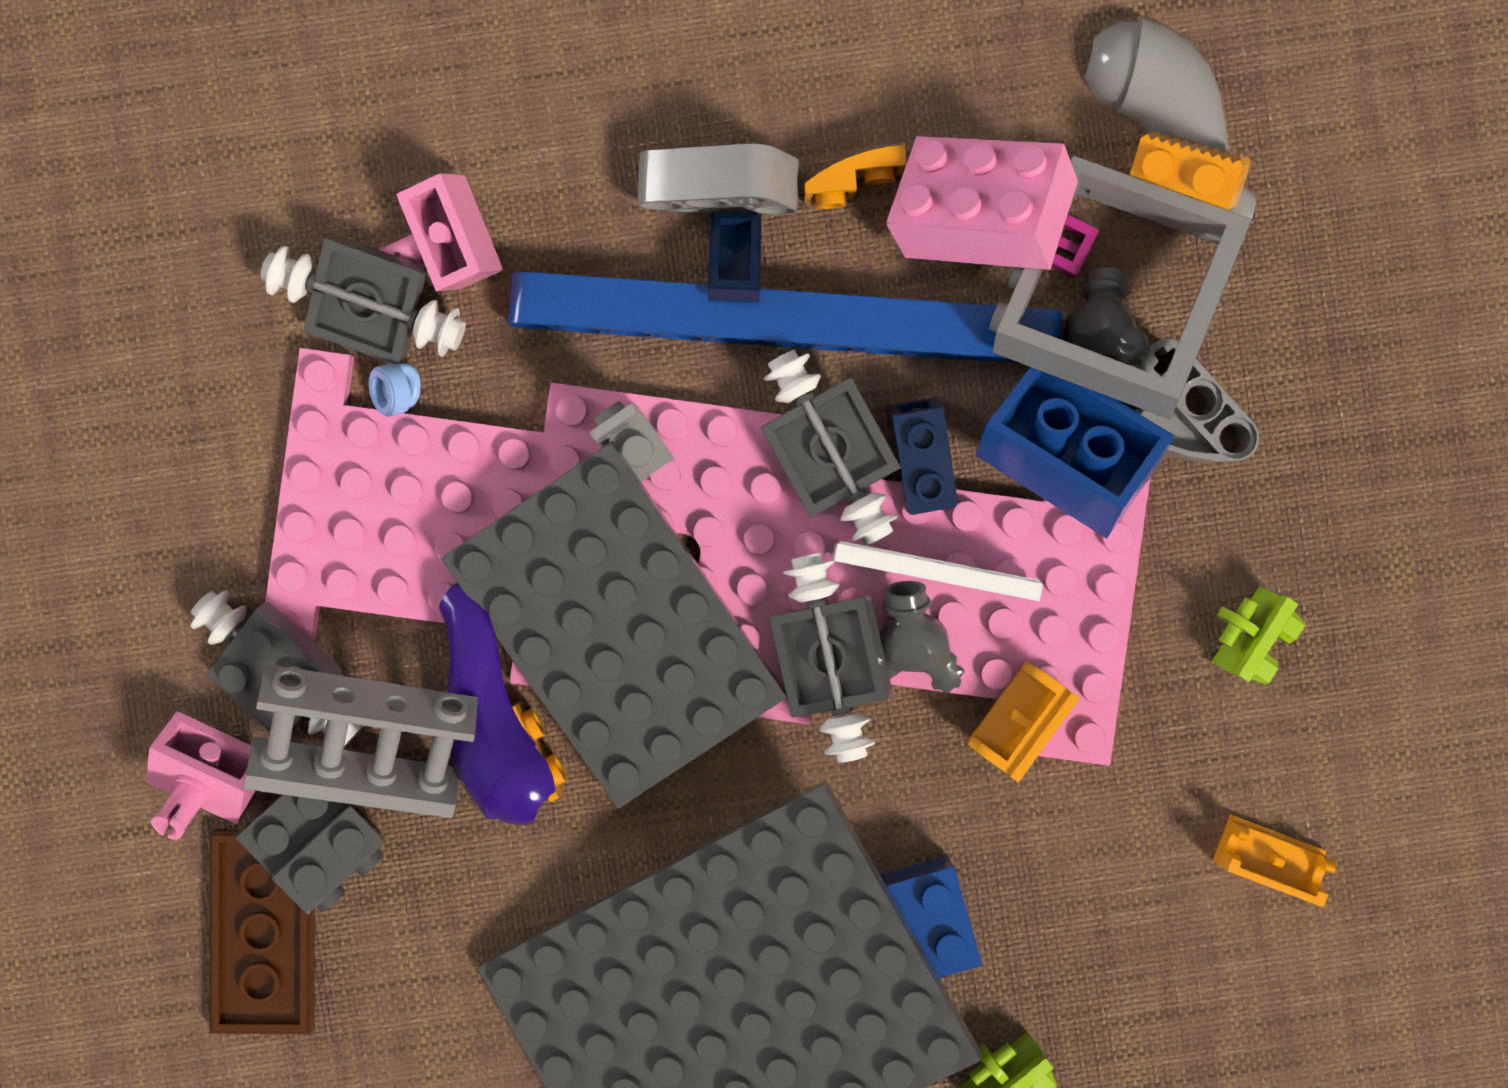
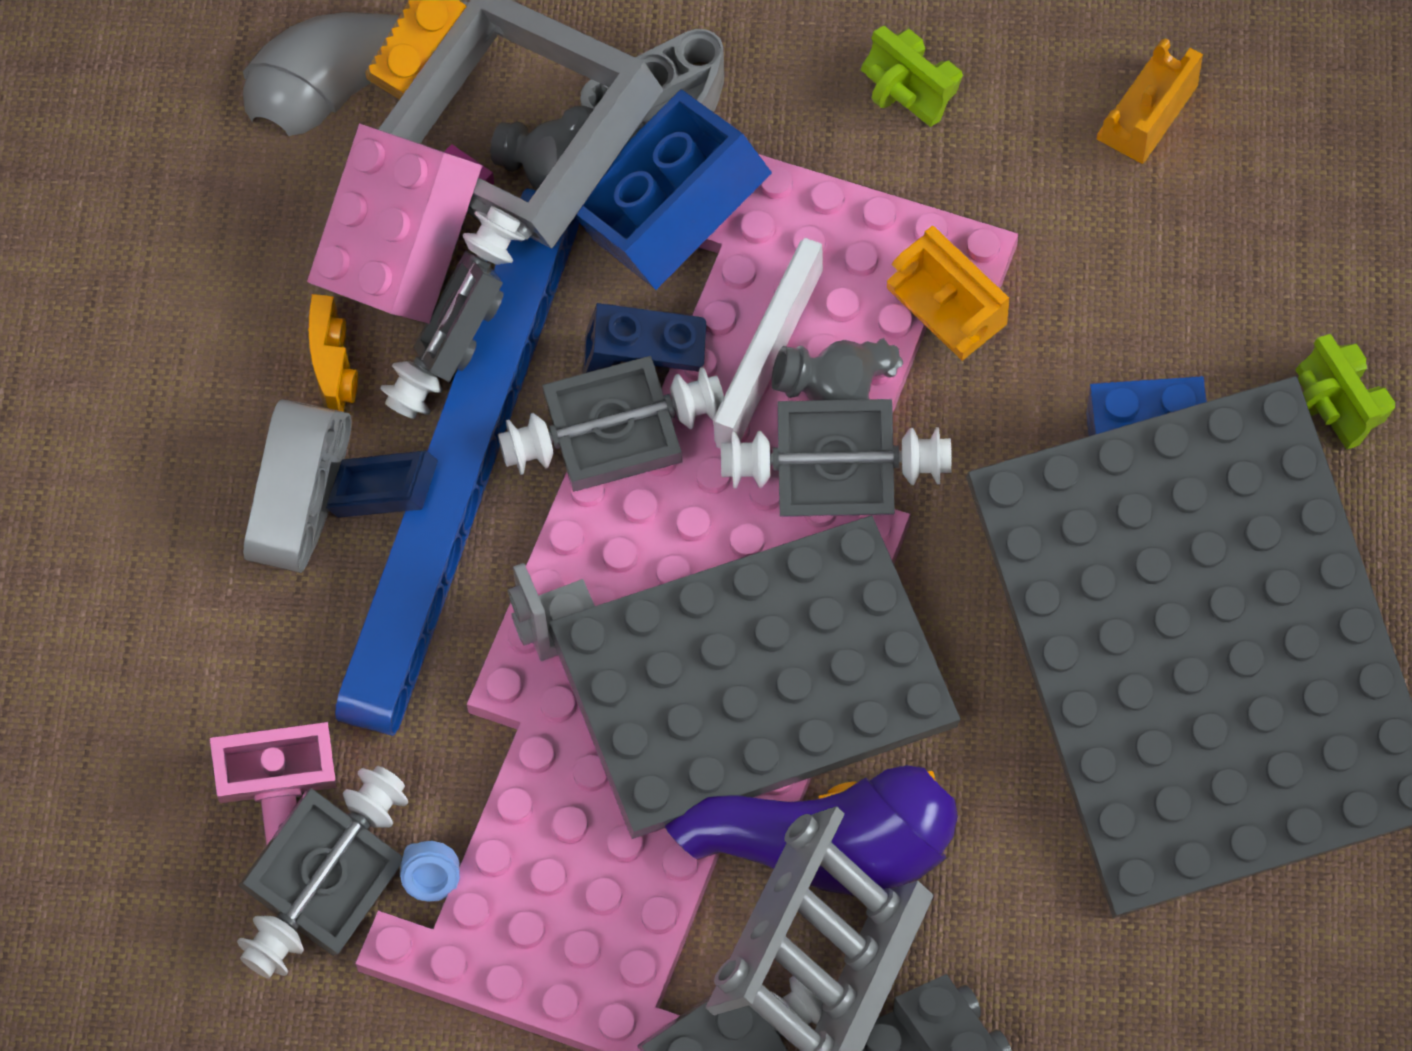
camera: 75 degrees left, 25 degrees down
(903, 285) = (464, 304): none -> plate

